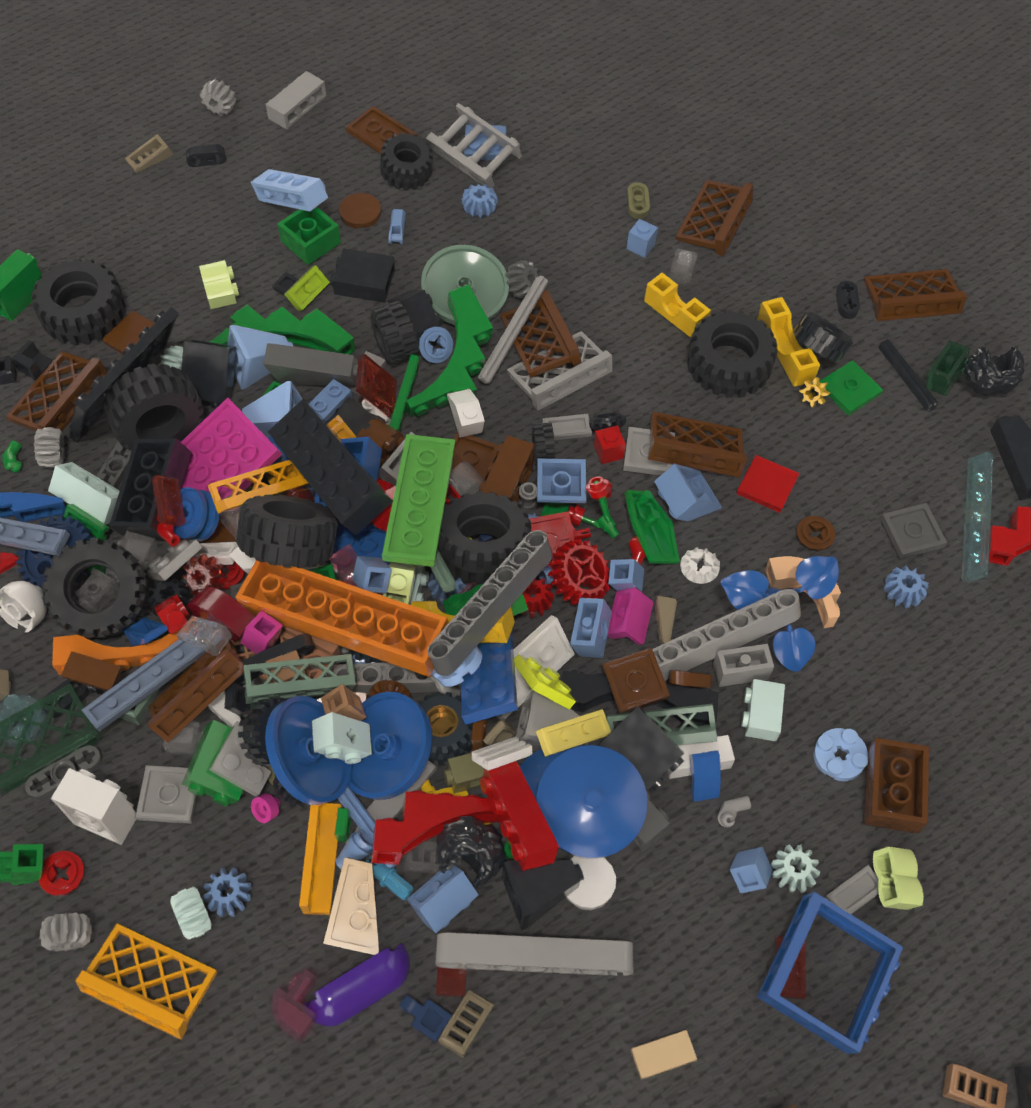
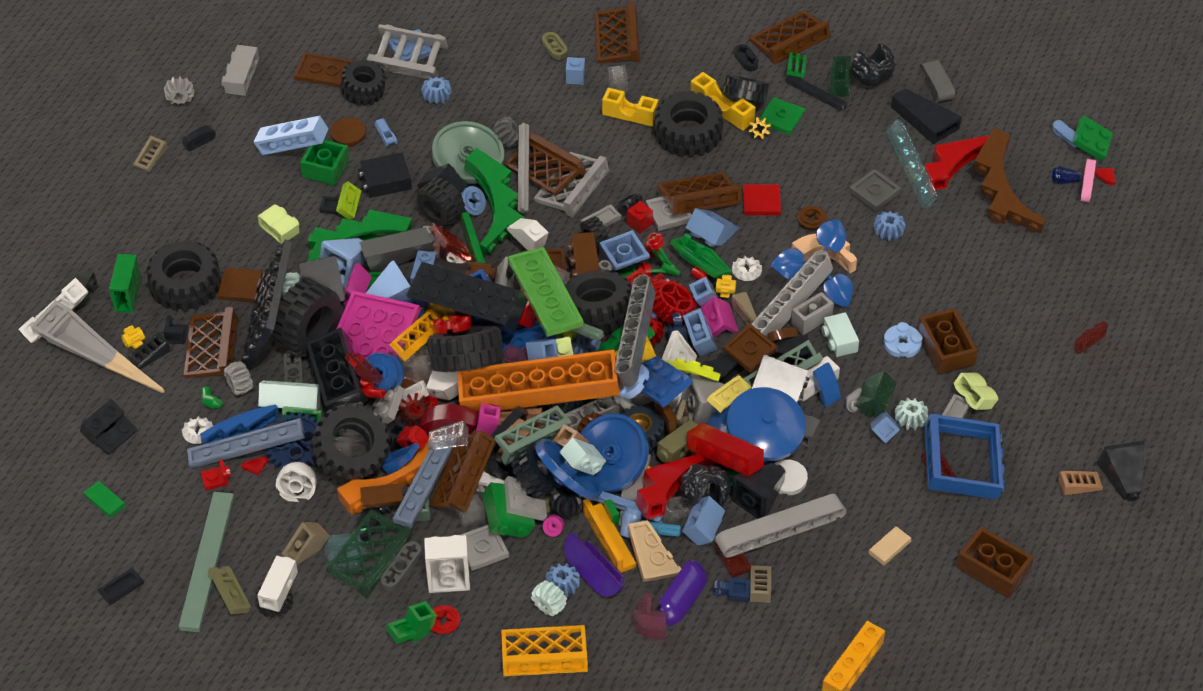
camera: 25 degrees left, 10 degrees down
(65, 931) = (474, 643): light grey gear -> none
(247, 388) = (357, 282): none -> dark pink panel
(277, 892) = (593, 566): none -> dark purple brick
(291, 493) = (454, 323): none -> red plate
(501, 753) = (692, 422): white tile -> none
(566, 612) = (677, 325): none -> dark blue plate
(659, 578) = (725, 286): none -> yellow gear
(763, 819) = (876, 394): none -> clear green brick
(907, 324) = (797, 59): none -> green tile

